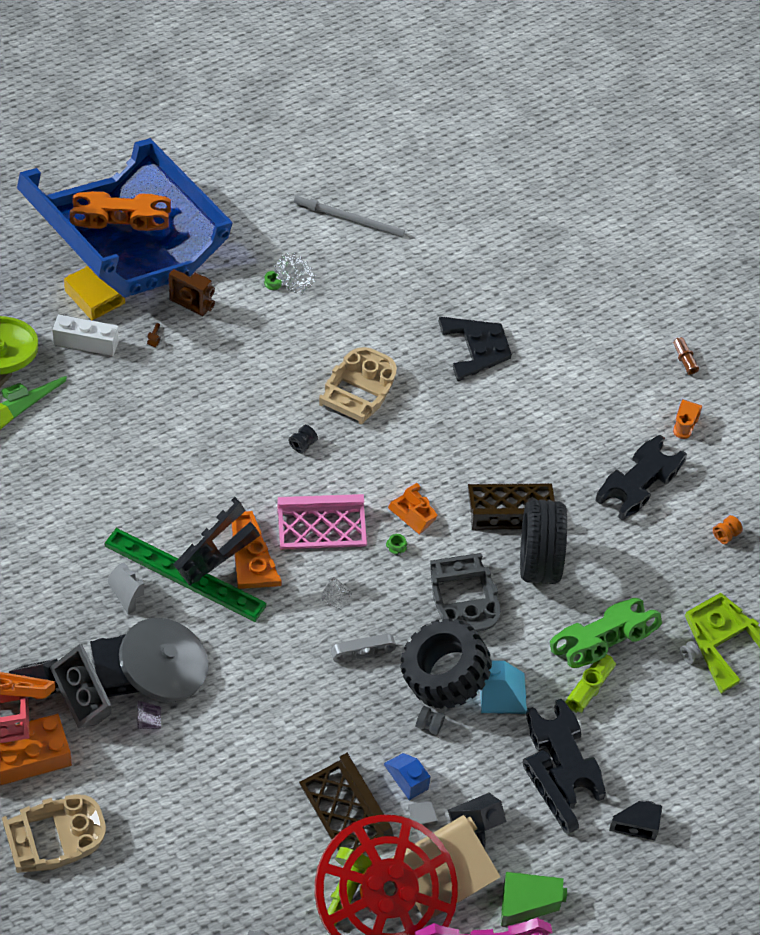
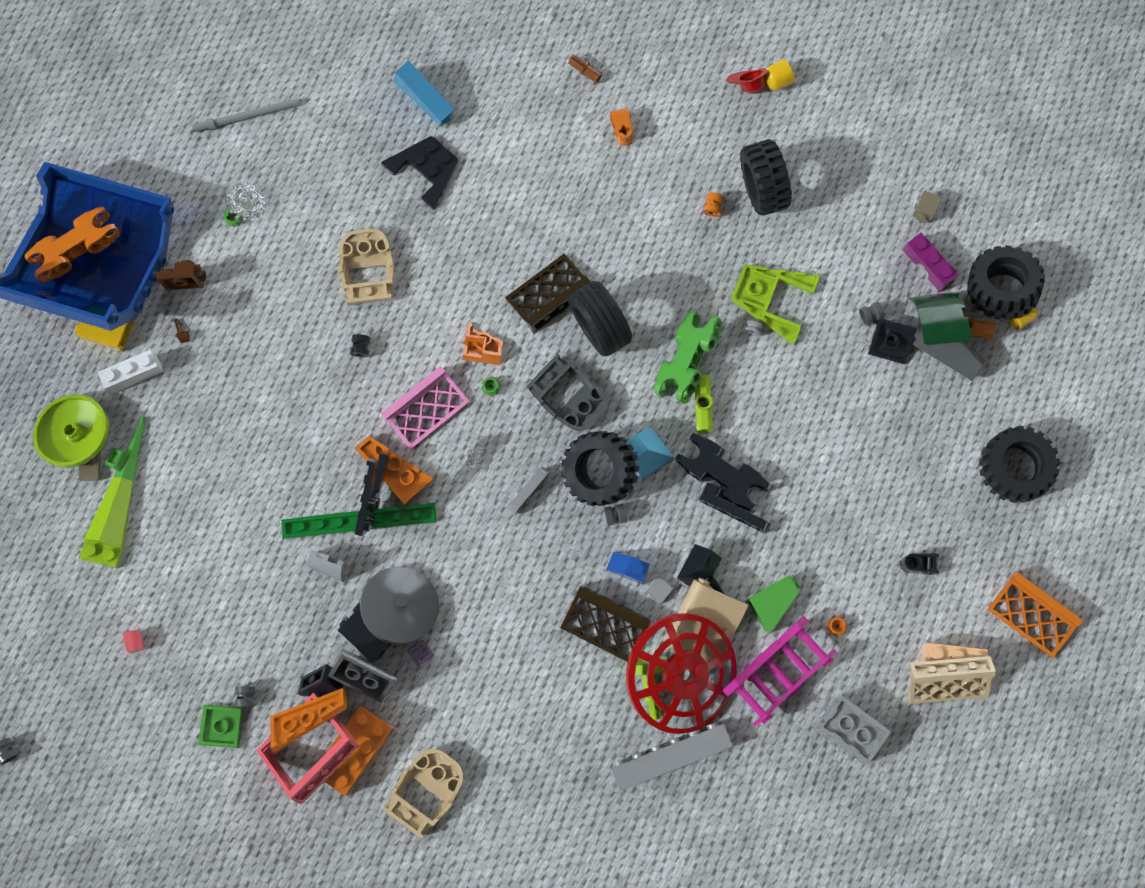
camera: 25 degrees left, 25 degrees up
(519, 286) = (423, 93): none -> dark azure slope
(633, 486) = (626, 187): black piece -> none
(638, 820) = (807, 488): black slope -> none

